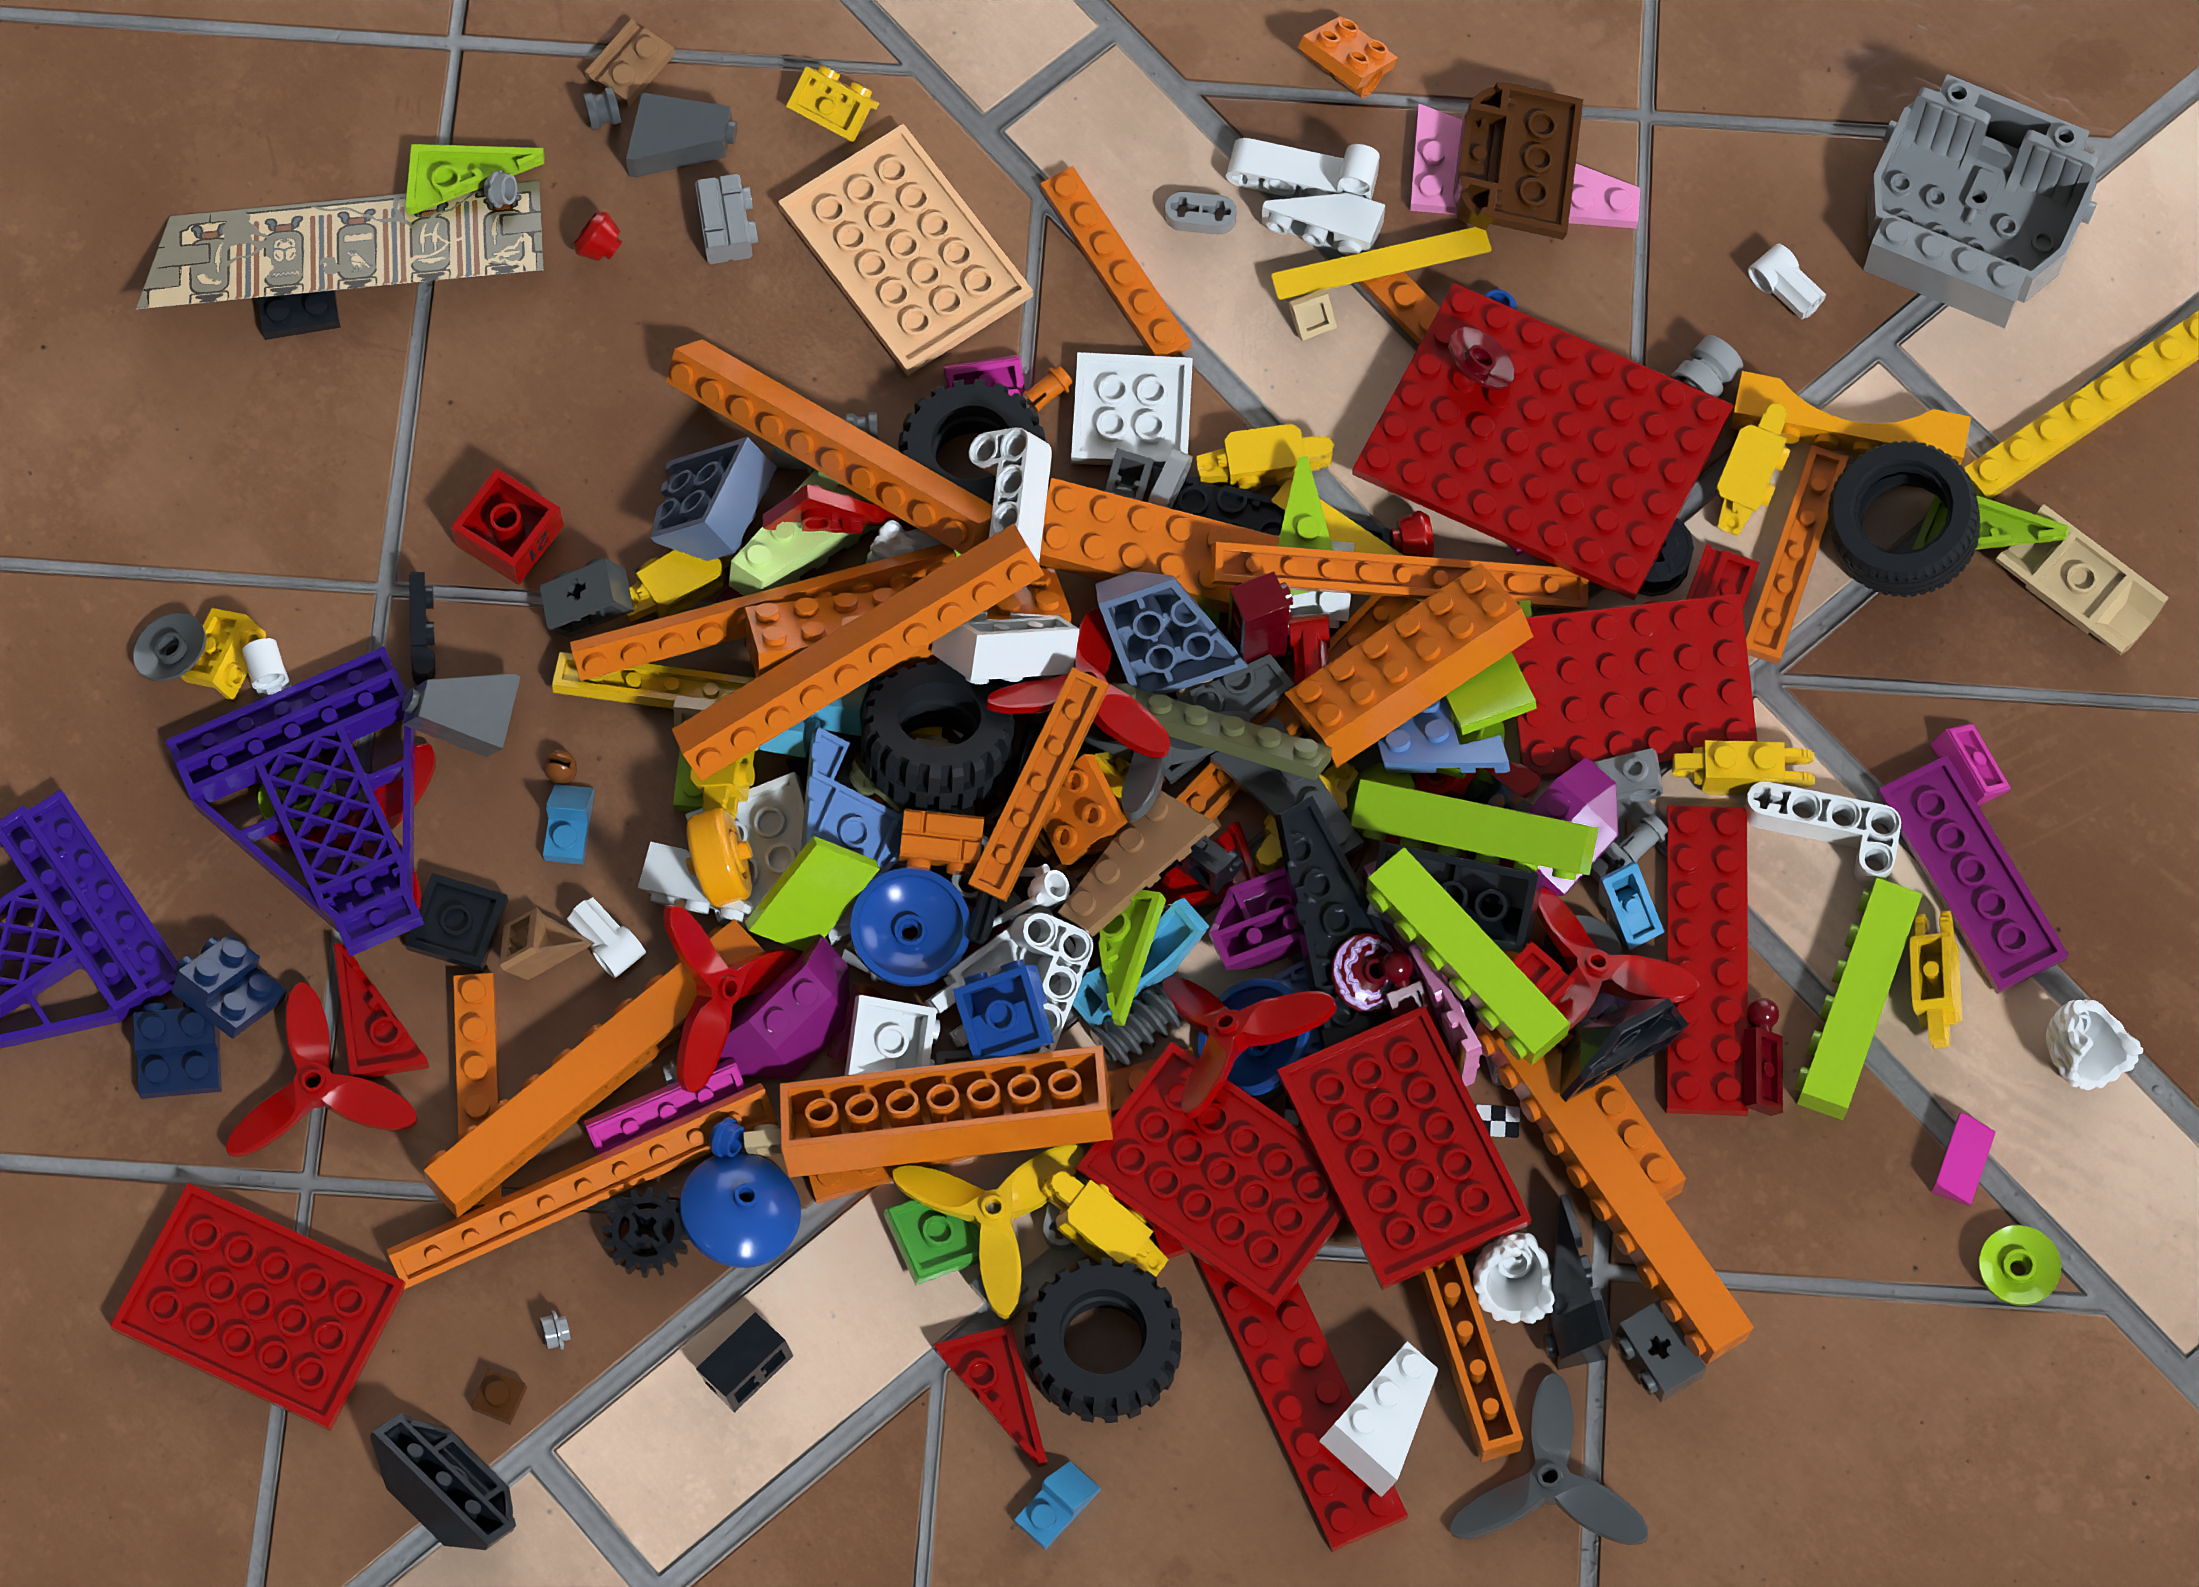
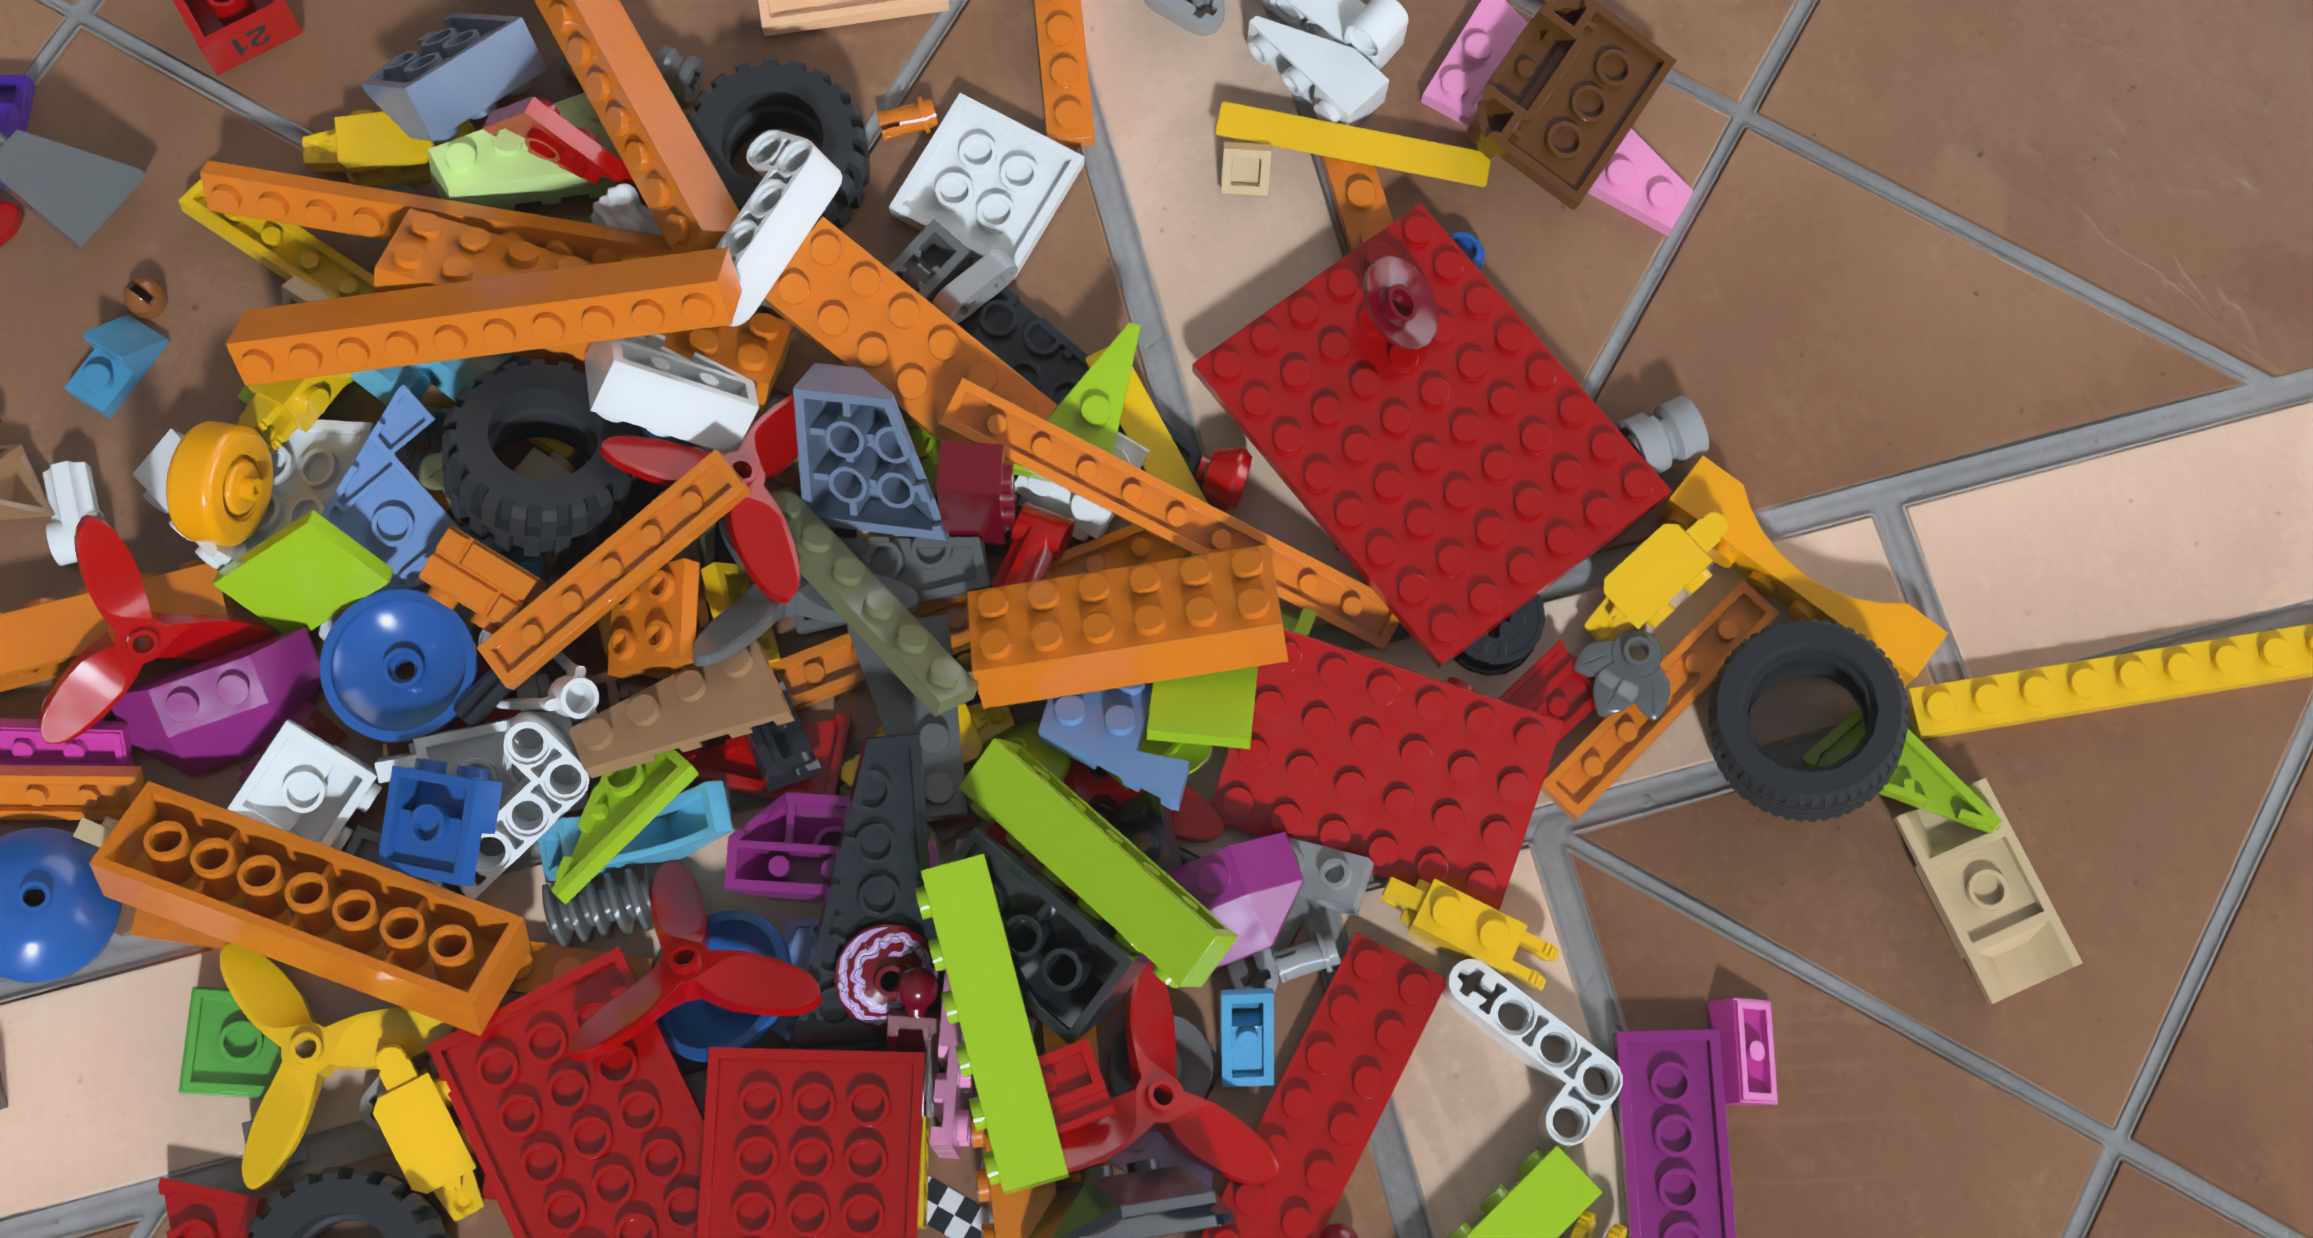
camera: 20 degrees right, 5 degrees up
(421, 631) = (79, 73): black hinge -> none
(586, 597) = (268, 120): dark grey brick -> none
(727, 1138) = (61, 814): blue plate -> none
(999, 370) = (865, 79): dark pink slope -> none
(1263, 457) = (1101, 303): yellow hinge -> none
(1764, 549) = (1623, 679): none -> dark grey plate
(1780, 273) = (1806, 363): white piece -> none
(1987, 147) = (2095, 308): light grey piece -> none

